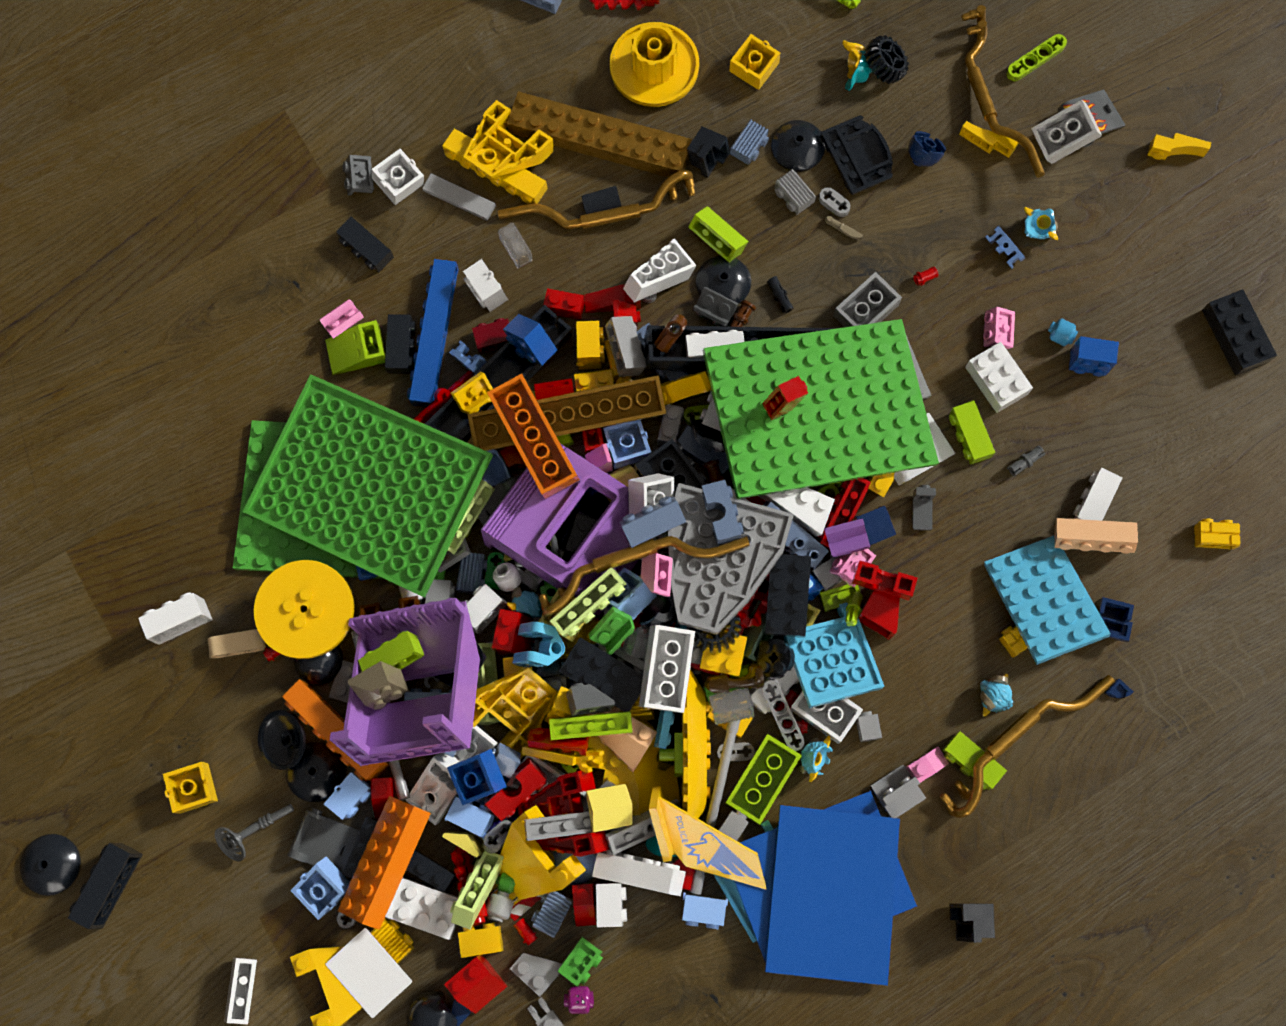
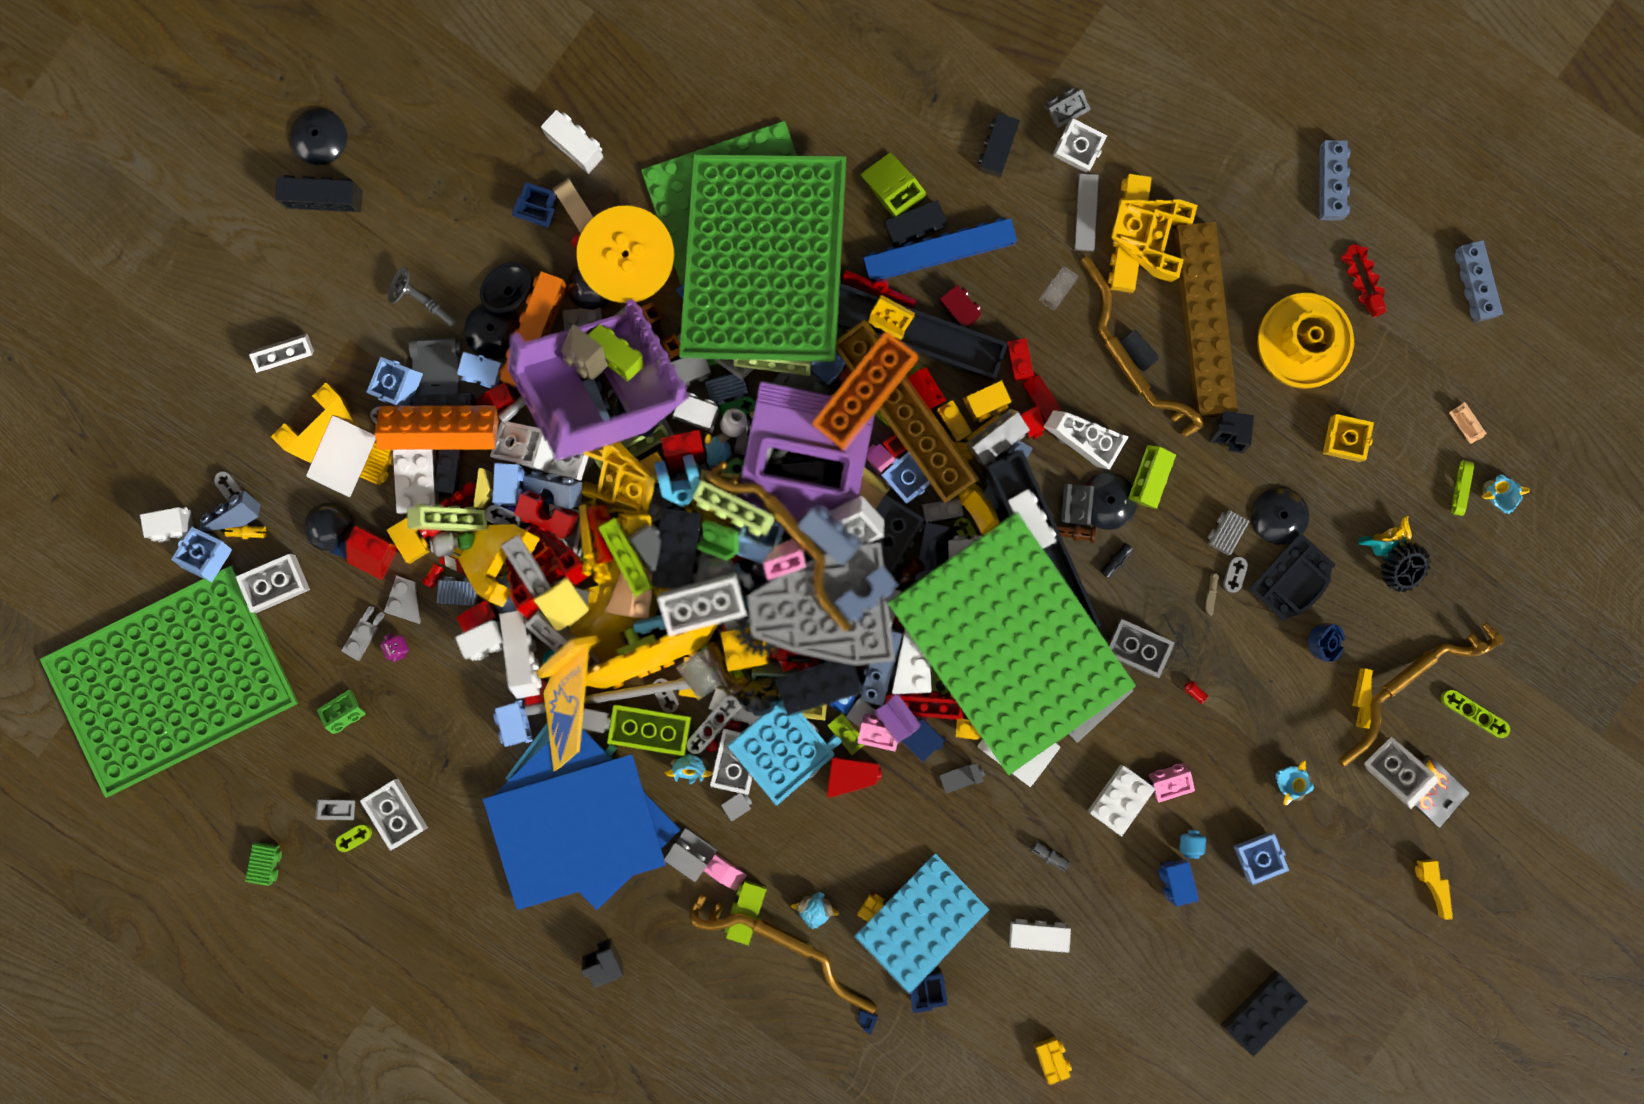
camera: 65 degrees right, 10 degrees up
(190, 787) = (431, 227): yellow brick -> none
(218, 678) = (536, 205): none -> dark blue plate
(341, 318) = (916, 158): bright pink bracket -> none
(471, 363) = (927, 305): medium blue piece -> none
(476, 777) = (540, 476): blue brick -> none
(484, 286) = (1005, 276): white brick -> none
(529, 340) = (964, 345): blue brick -> none
(580, 962) = (426, 634): bright green bracket -> none
(670, 333) = (1024, 475): reddish brown piece -> none
(749, 142) = (1261, 467): sand blue brick -> none
(785, 397) = (997, 609): red brick -> none
(853, 609) = (836, 750): lime axle -> none
(893, 584) = (869, 768): red arch -> none
(971, 432) = (1055, 794): lime brick -> none
(1005, 240) = (1258, 764): medium blue piece -> none
(1096, 535) = (1000, 947): light nougat wedge -> none
(1097, 278) = (1261, 858): none -> light blue brick

